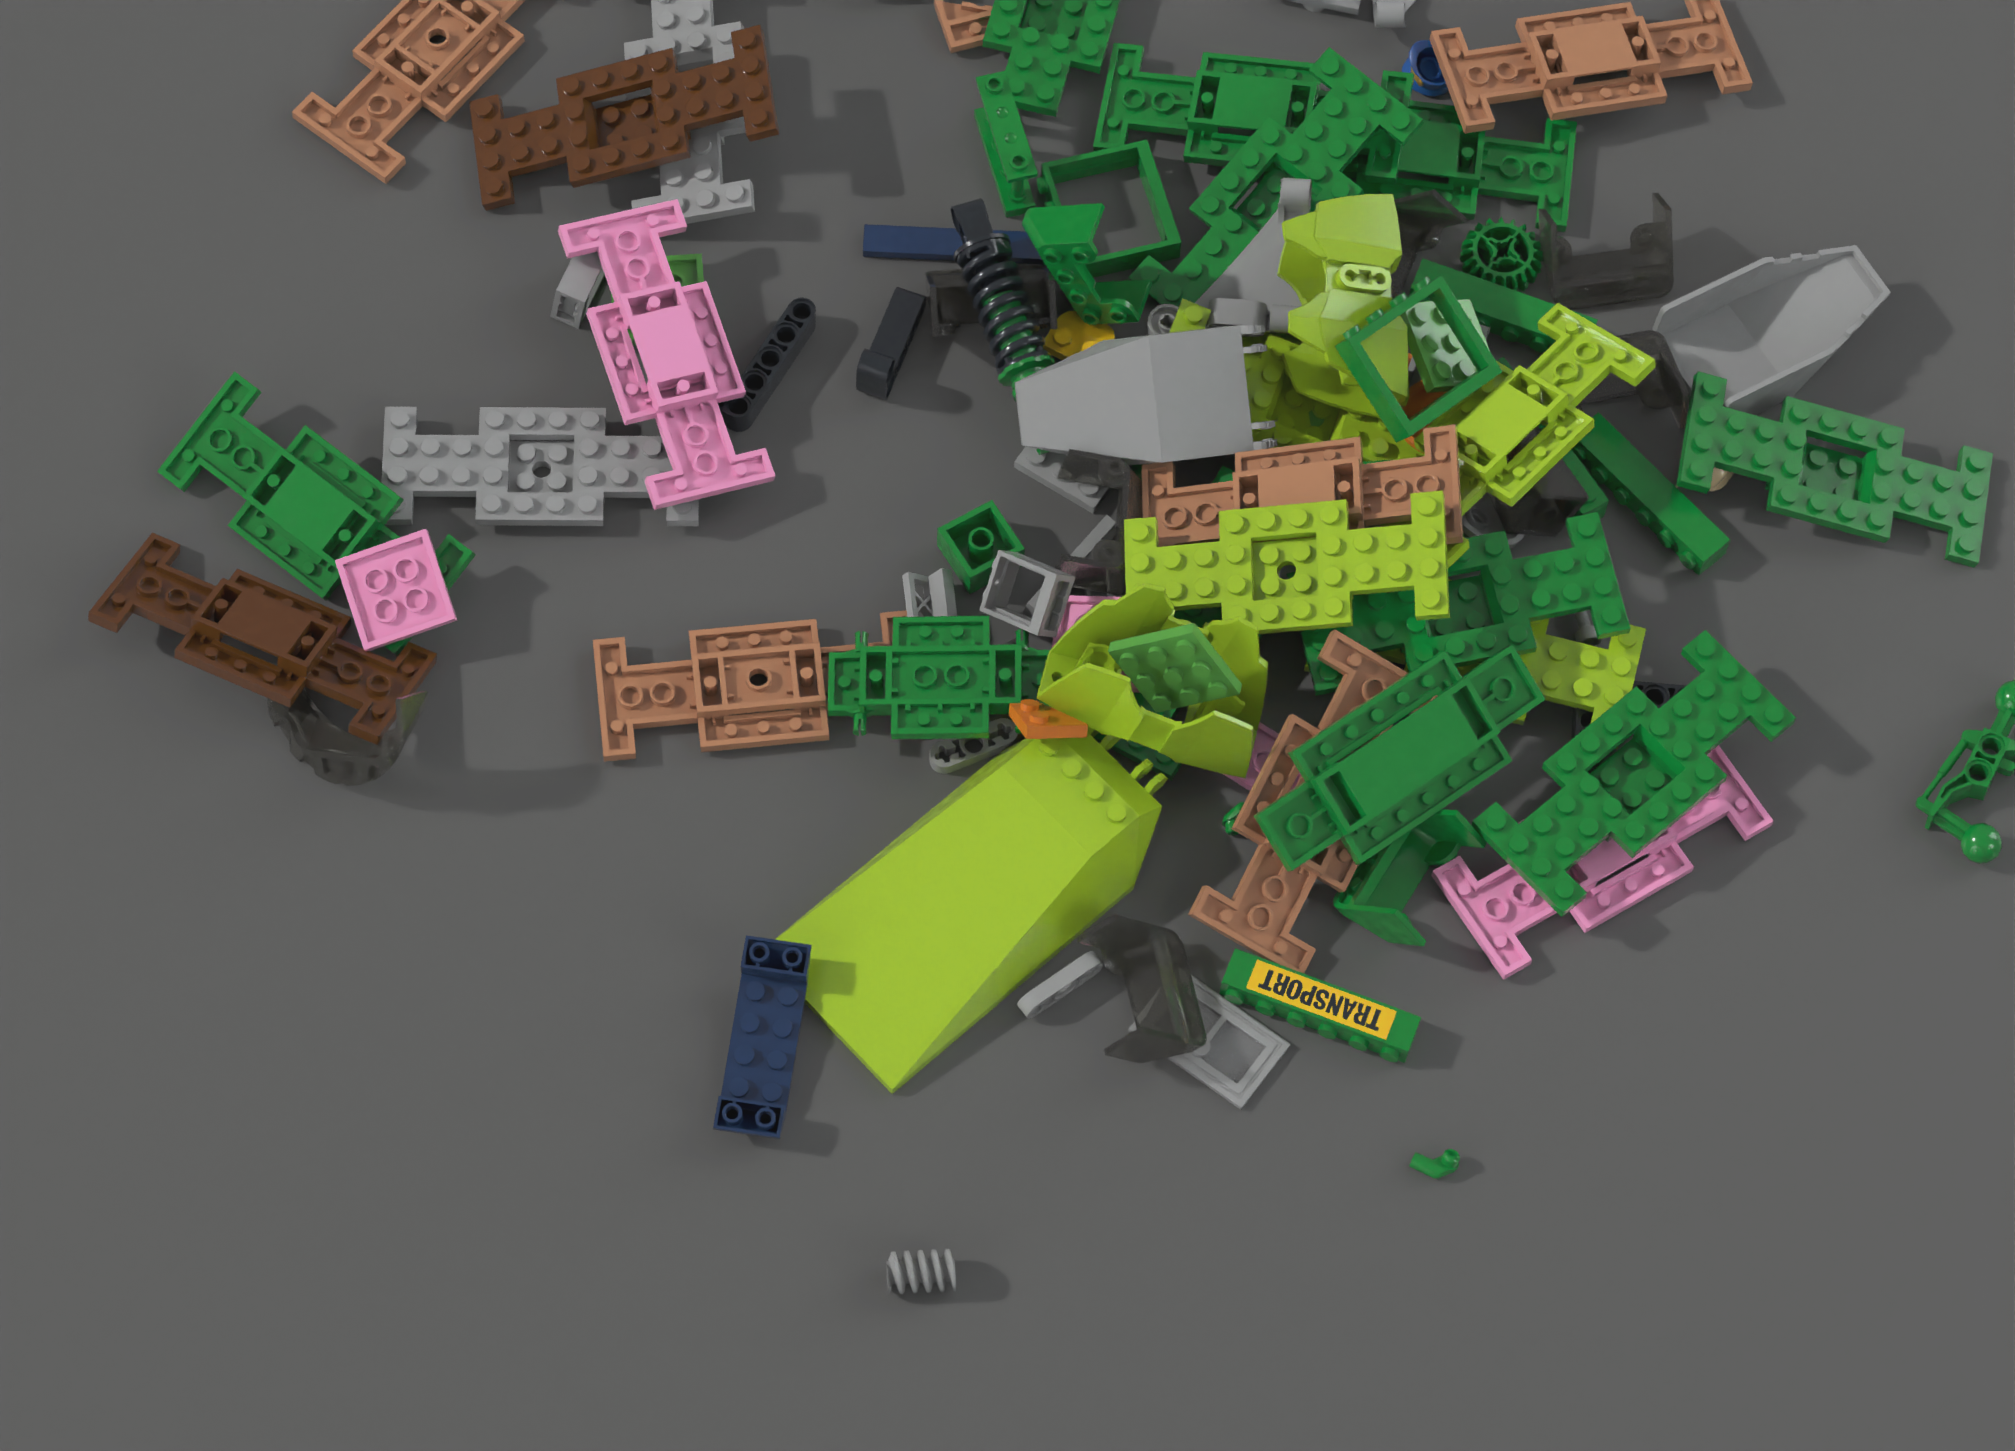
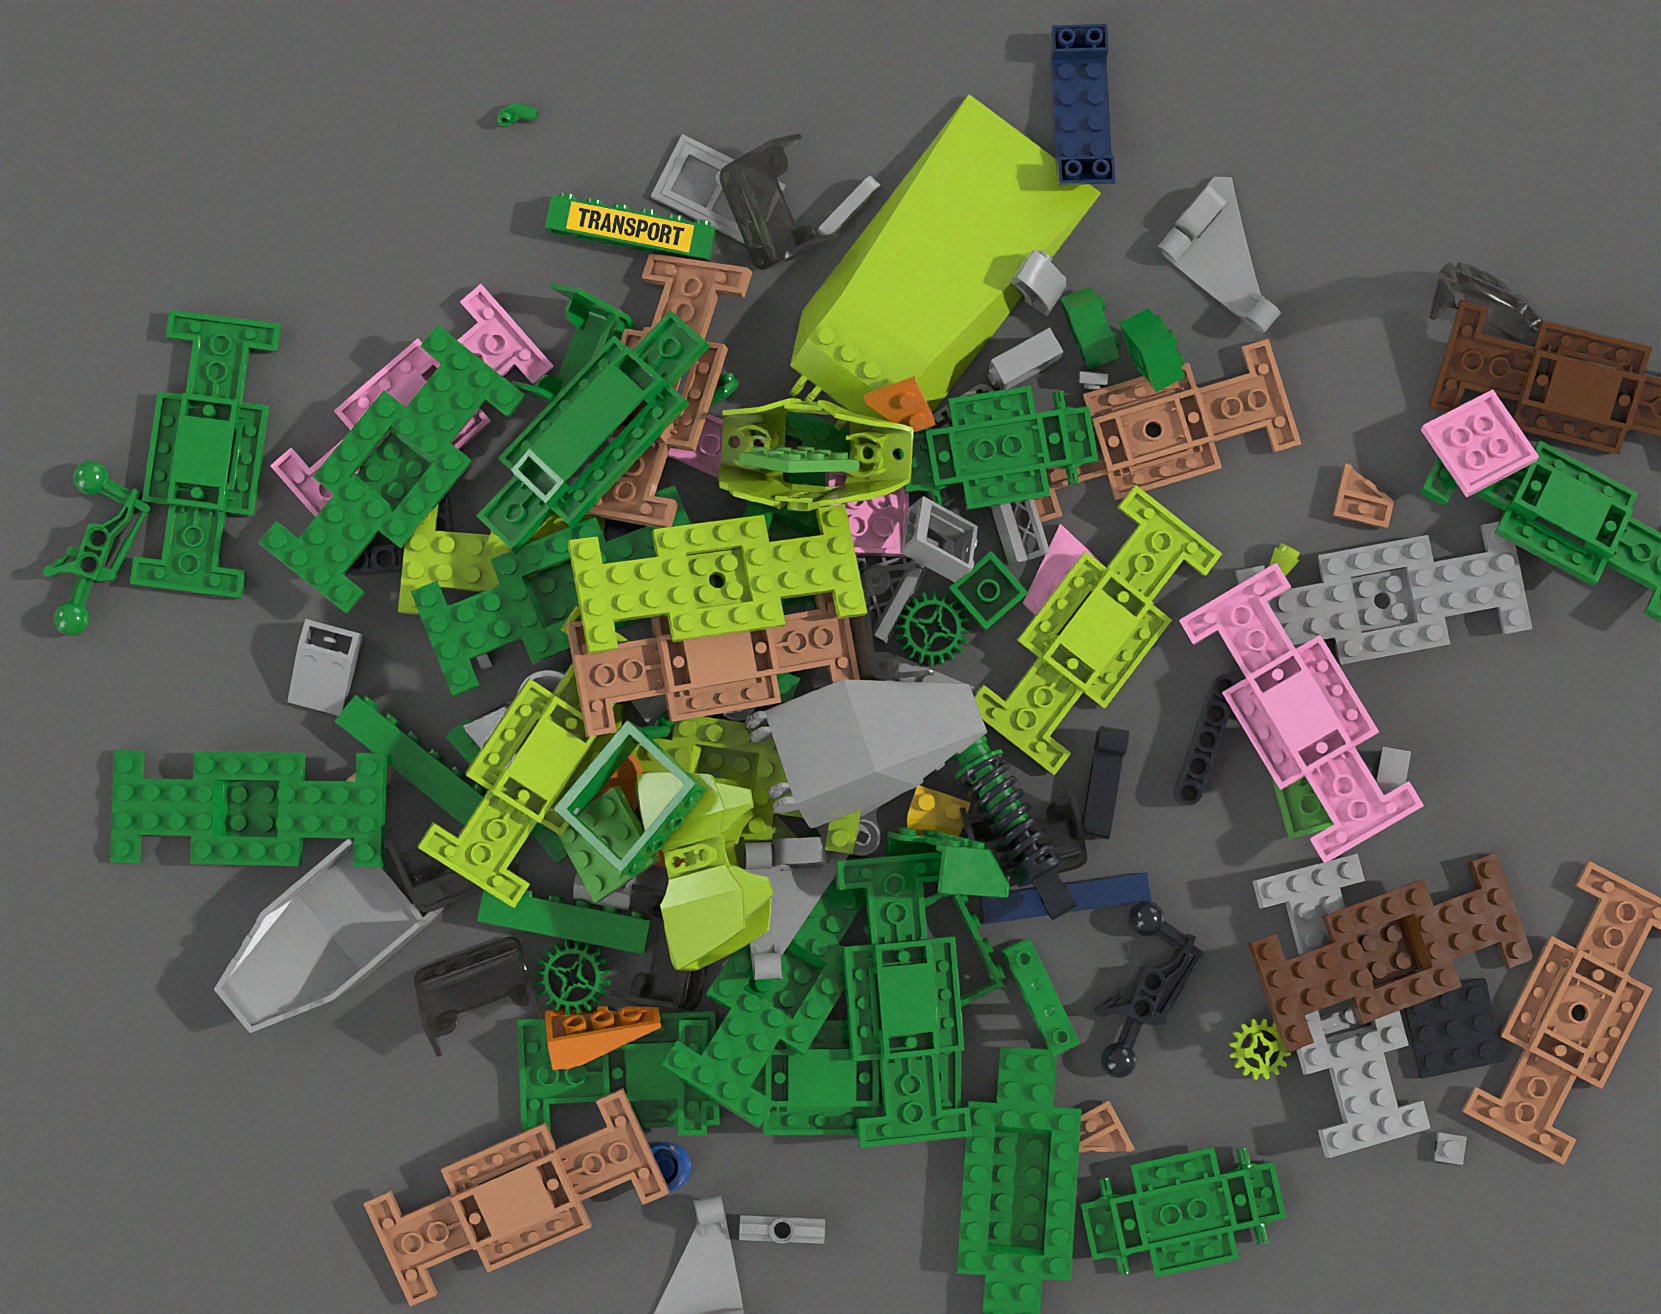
camera: 170 degrees right, 20 degrees up
(538, 573) = (1361, 500): none -> nougat wing
(565, 46) = (1454, 1031): none -> black plate
(640, 863) = (1214, 253): none -> light grey panel
(642, 527) = (1285, 558): none -> lime cone
(741, 753) = (1153, 349): none -> green brick
(797, 66) = (1256, 1035): none -> lime gear
(805, 804) = (1089, 327): none -> green brick
(813, 751) = (1092, 379): none -> light grey plate
(856, 852) = (1039, 281): none -> light grey brick
(859, 477) = (1103, 637): none -> lime piece
(873, 202) = (1146, 920): none -> black piece
(882, 565) = (1063, 554): none -> bright pink wing
(890, 774) = (1024, 360): none -> light grey window
(1040, 511) = (918, 623): none -> green gear
(1139, 159) = (915, 997): none -> green piece
(1489, 190) = (587, 1036): none -> orange wedge
(1733, 604) = (324, 667): none -> light grey slope
(1857, 855) = (193, 454): none -> green piece

